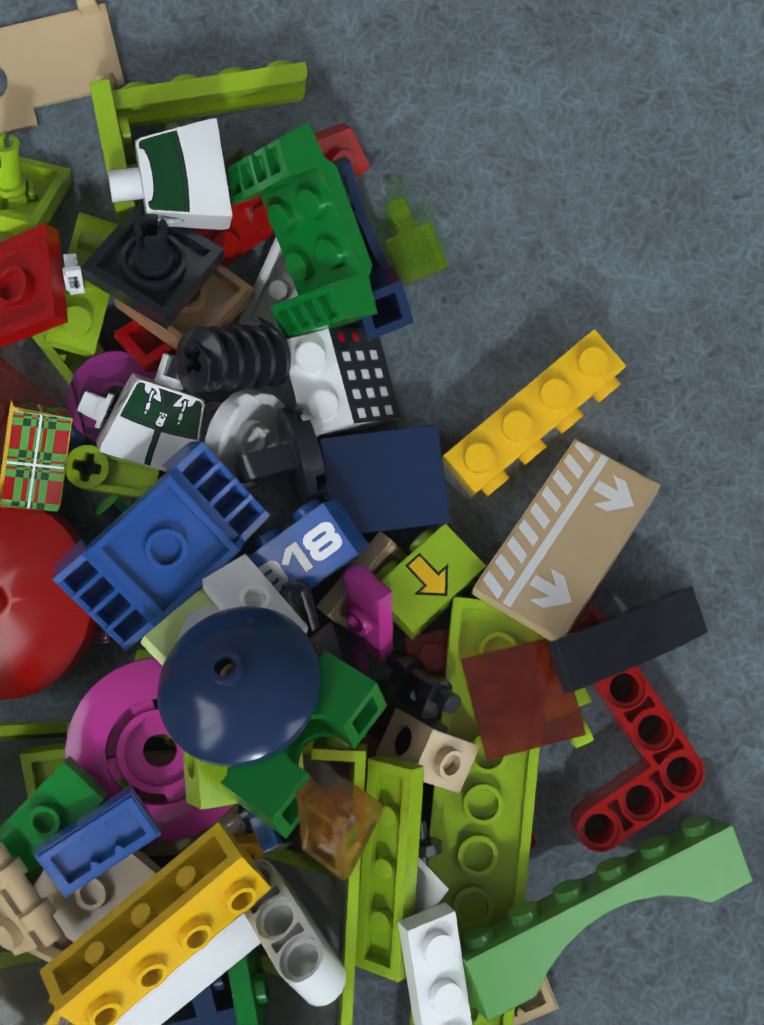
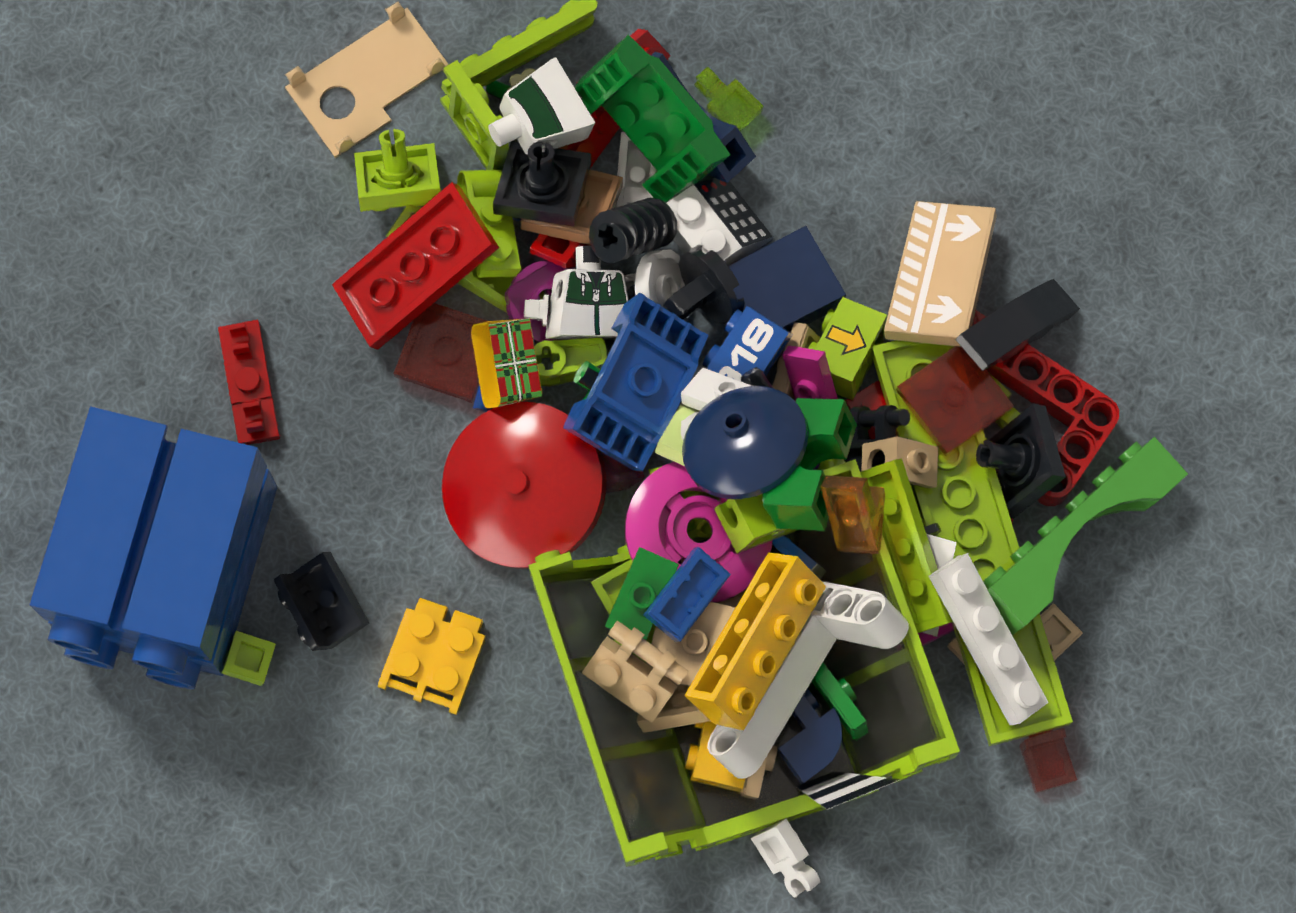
camera: 20 degrees left, 10 degrees down
(73, 275) = (486, 212): white piece -> none
(532, 413) = (875, 193): yellow brick -> none
(573, 796) = (1024, 458): none -> black plate

